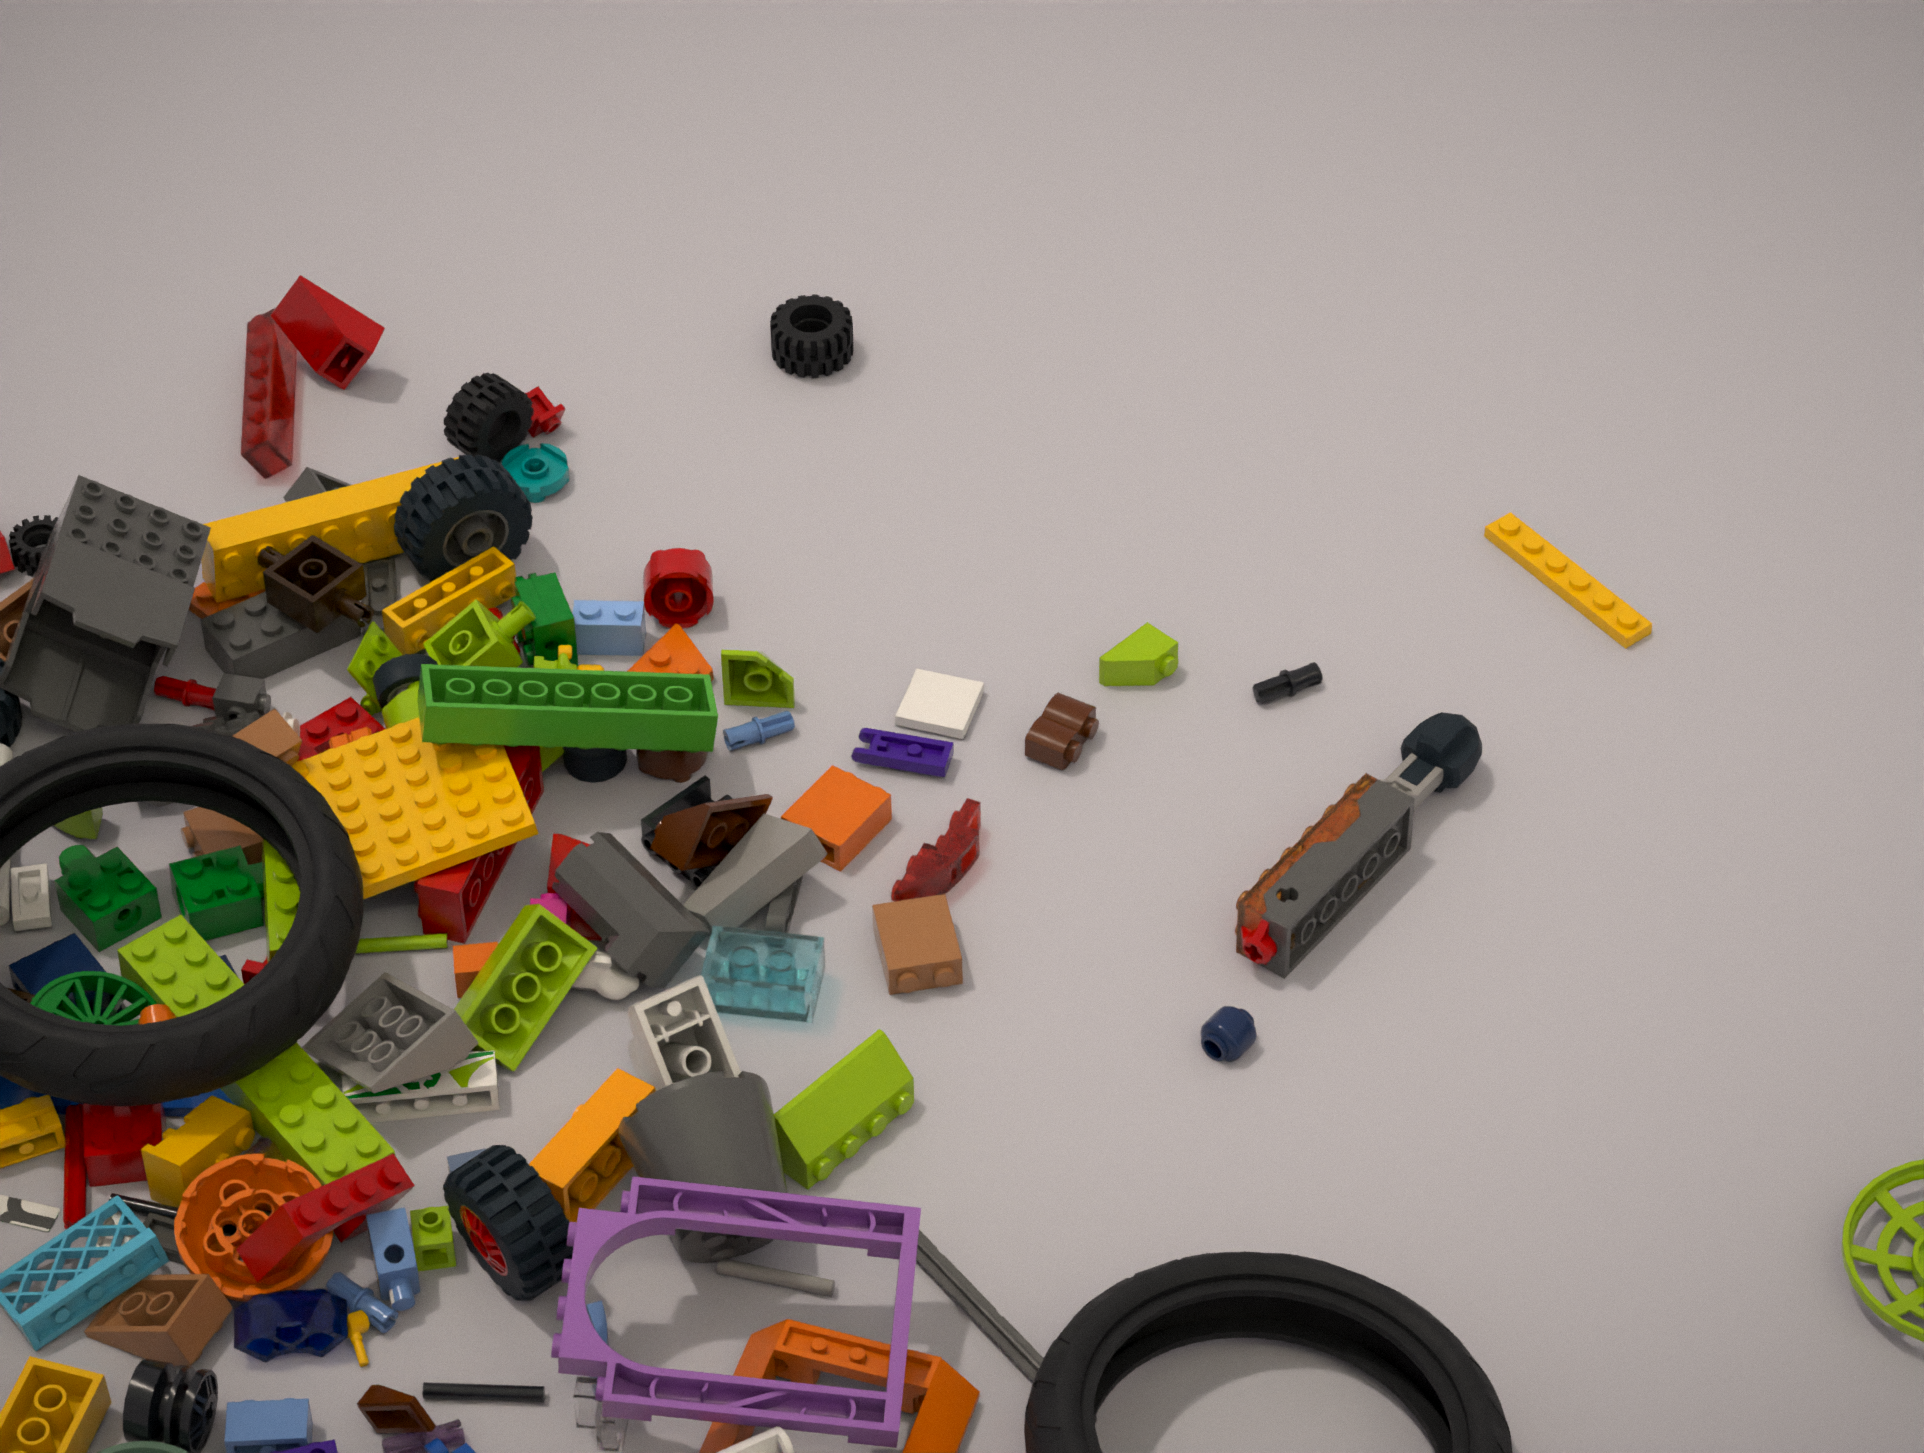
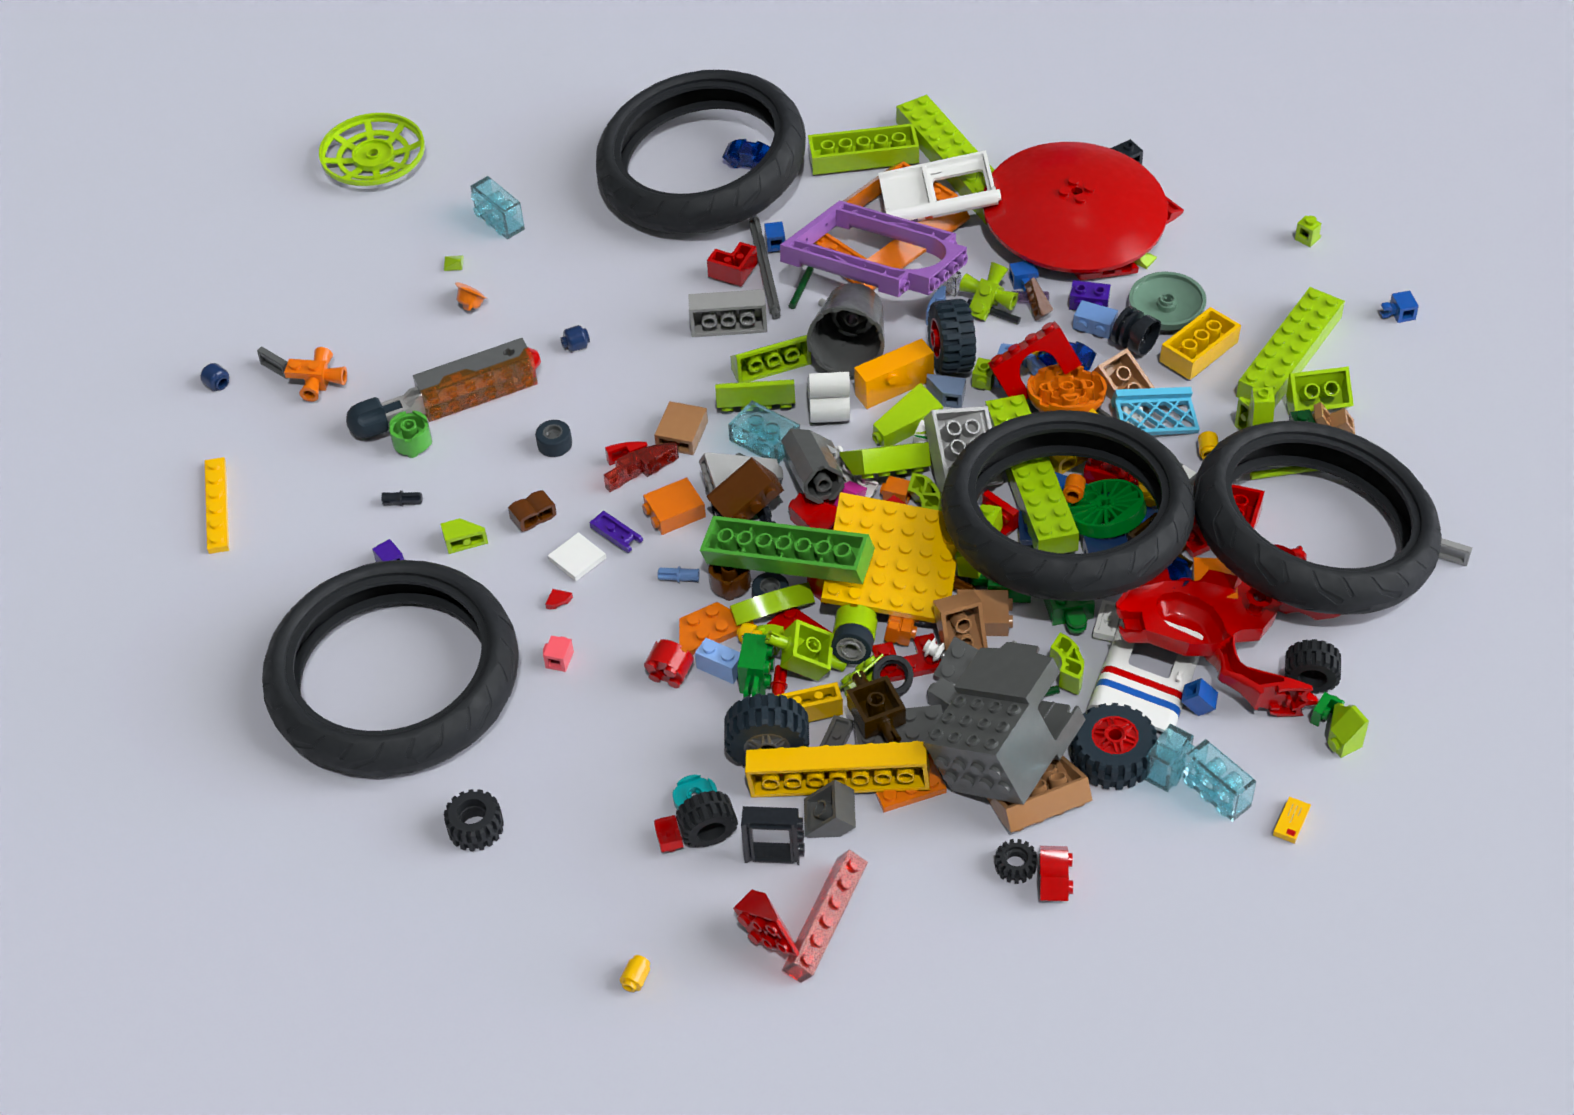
camera: 150 degrees left, 5 degrees up
(329, 691) = (902, 662): none -> black tyre
(391, 453) = (772, 819): none -> black window
(413, 961) = (925, 492): none -> lime brick
(483, 271) = (635, 973): none -> yellow brick
(503, 1395) = (988, 292): none -> lime brick
(531, 1100) = (904, 417): none -> lime slope
(755, 680) = (665, 595): lime slope -> none
(819, 1020) = (762, 392): none -> lime slope
(858, 560) = (558, 653): none -> coral brick
(887, 1291) = (803, 282): none -> dark green bar
(921, 638) = (558, 598): none -> red tile
(973, 876) = (618, 450): none -> red slope
(975, 1156) = (727, 313): none -> light grey brick
(1003, 1369) = (774, 235): none -> blue brick
(1039, 1265) = (733, 266): none -> red brick
(1073, 547) = (406, 747): none -> black tyre
(1120, 851) = (553, 438): none -> black wheel
(1224, 591) = (387, 551): none -> dark purple brick
(1353, 752) = (410, 433): none -> bright green brick
(1487, 1038) = (469, 296): none -> orange piece
(1584, 1107) = (453, 263): none -> lime slope
(1587, 1209) = (497, 207): none -> clear light blue brick
(1611, 799) = (315, 373): none -> orange brick
(1705, 801) = (272, 361): none -> dark grey tile
(1779, 745) = (214, 377): none -> dark blue head

